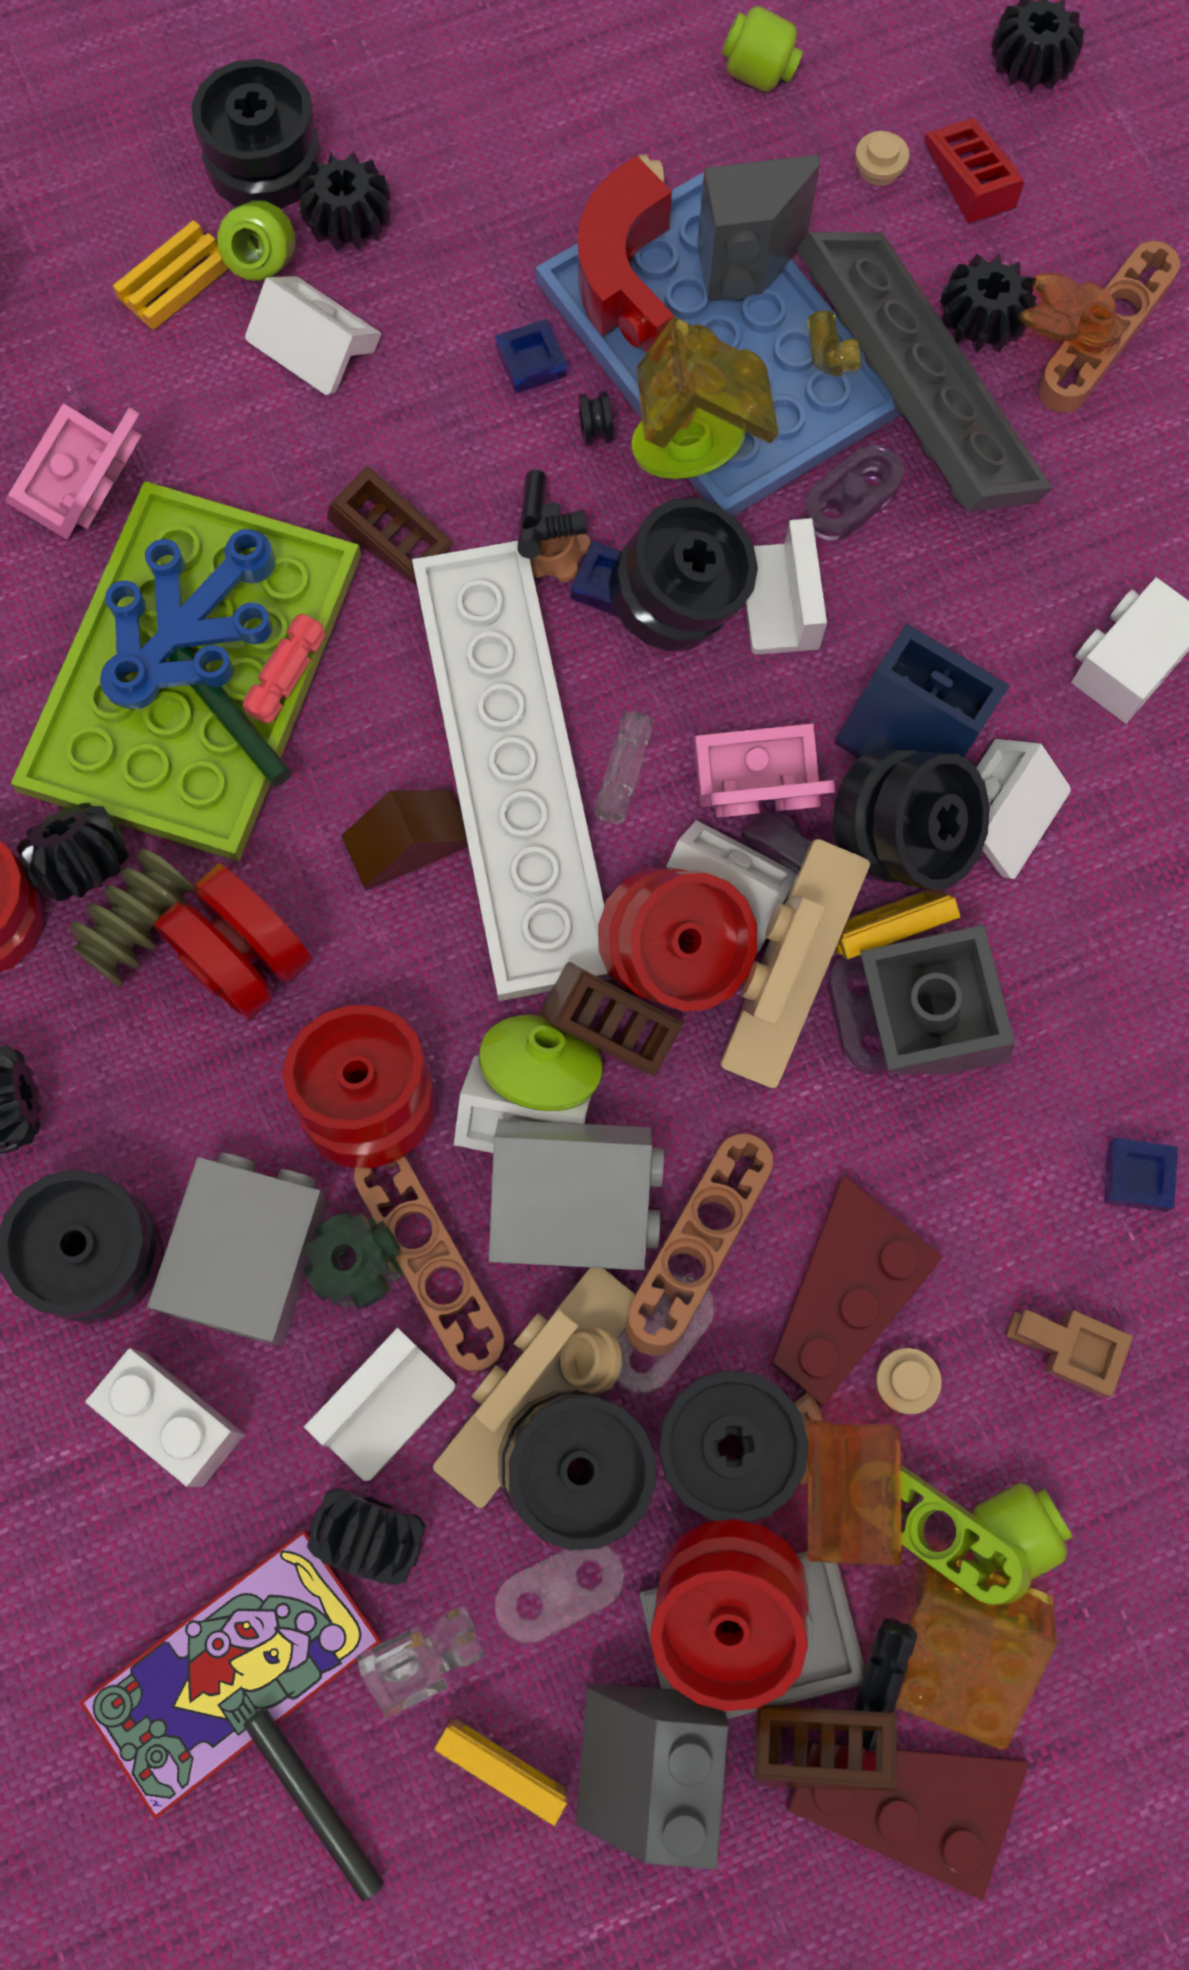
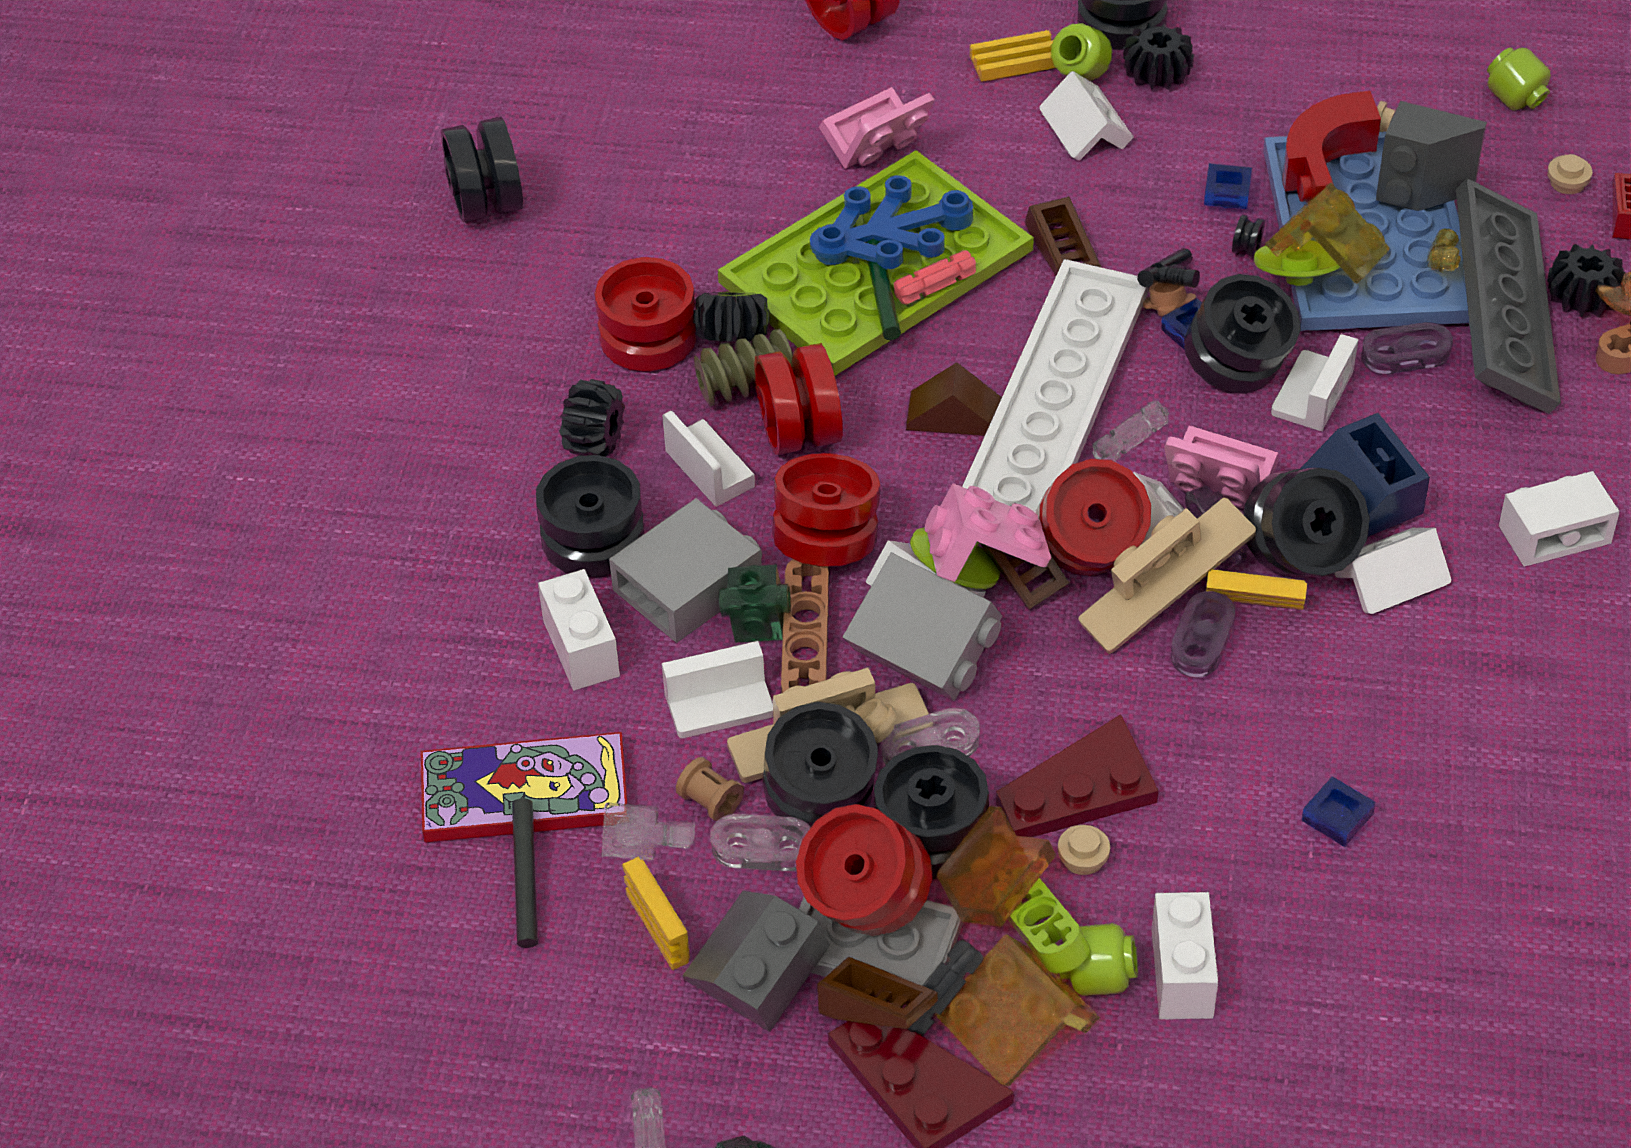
camera: 35 degrees right, 25 degrees down
(165, 1067) = (706, 459): none -> white panel
(366, 1536) = (659, 740): black gear -> none
(456, 1553) = (709, 789): none -> medium nougat bush
(582, 1043) = (975, 517): none -> bright pink bracket
(695, 1239) = (940, 712): nougat beam -> none
(938, 1003) = (1254, 640): dark grey slope -> none
(1079, 1348) = (1228, 885): medium nougat plate -> none
(1106, 1476) = (1184, 956): none -> white brick

